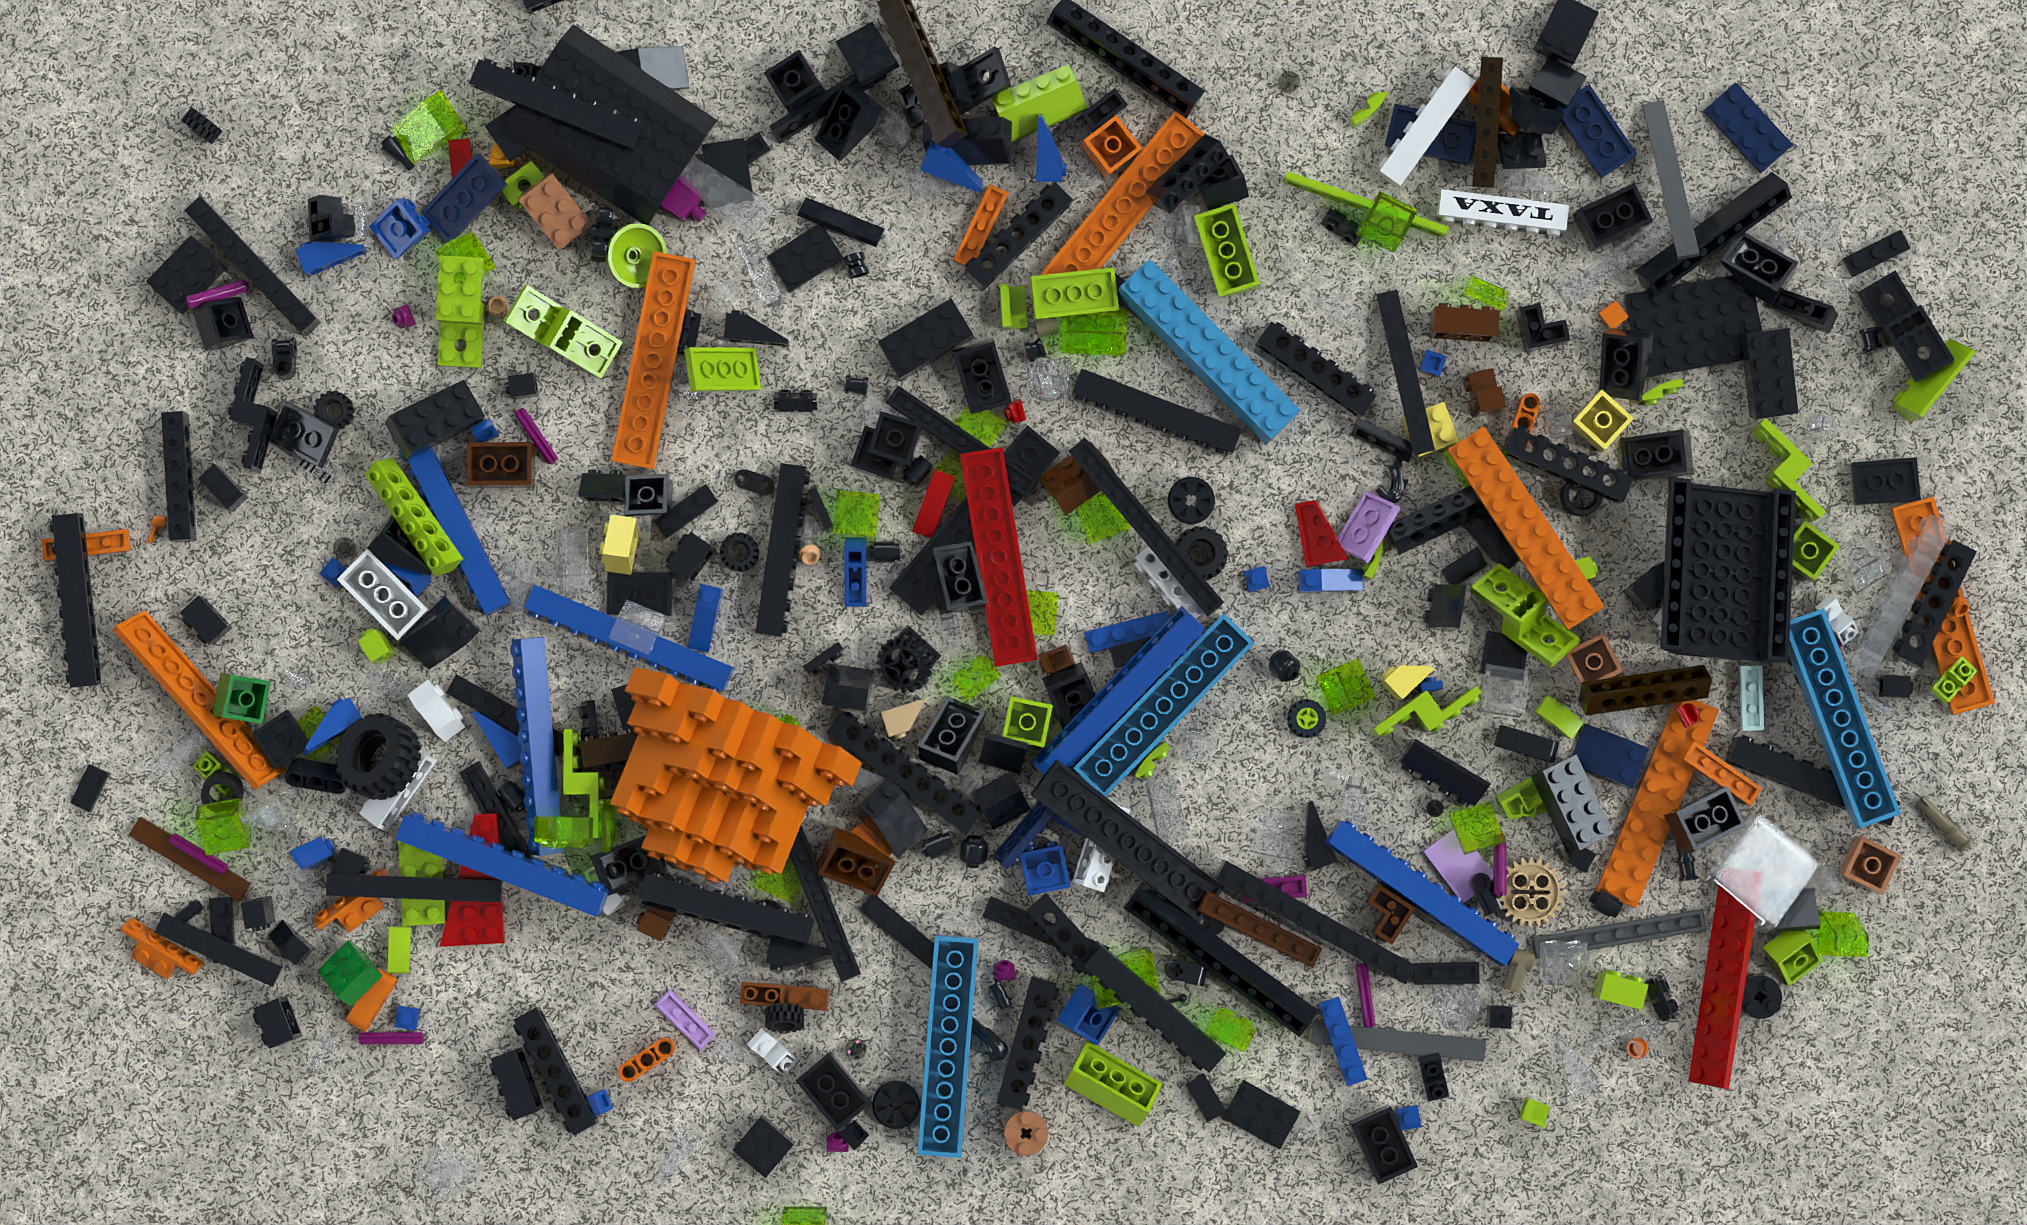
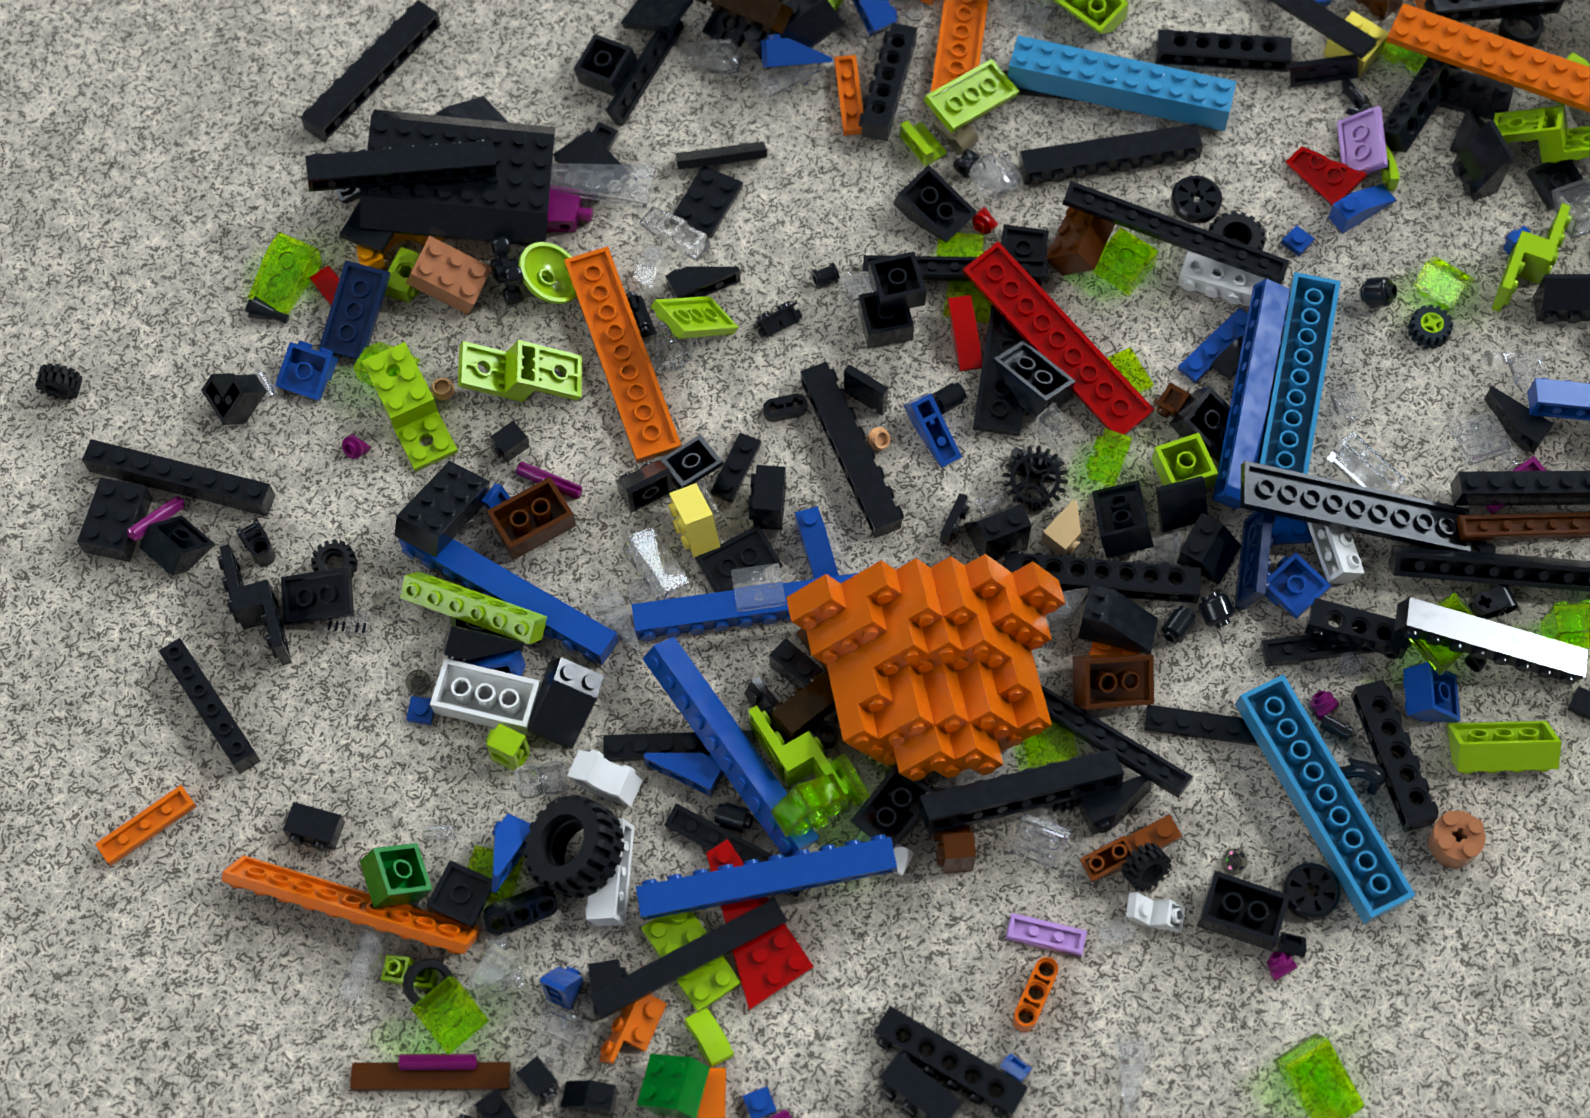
camera: 30 degrees left, 20 degrees down
(76, 600) = (165, 880): black brick -> none
(90, 788) = (281, 1066): black plate -> none
(157, 521) = (211, 761): orange hand -> none
(223, 487) = (261, 690): black brick -> none
(324, 255) = (245, 432): blue slope -> none
(730, 542) = (806, 485): black tyre -> none
(763, 1146) = (1211, 1009): black brick -> none
(810, 527) = (865, 411): clear plate -> none
(848, 121) = (674, 68): black slope -> none
(856, 265) = (758, 180): black wheel -> none
(857, 514) = (903, 376): clear neon green brick -> none
(917, 472) = (930, 315): black brick -> none
(926, 339) = (863, 205): black brick -> none
(1095, 333) = (1011, 122): clear neon green slope -> none
(1147, 765) = (1321, 439): lime slope -> none
(1403, 679) = (1491, 242): light yellow slope -> none

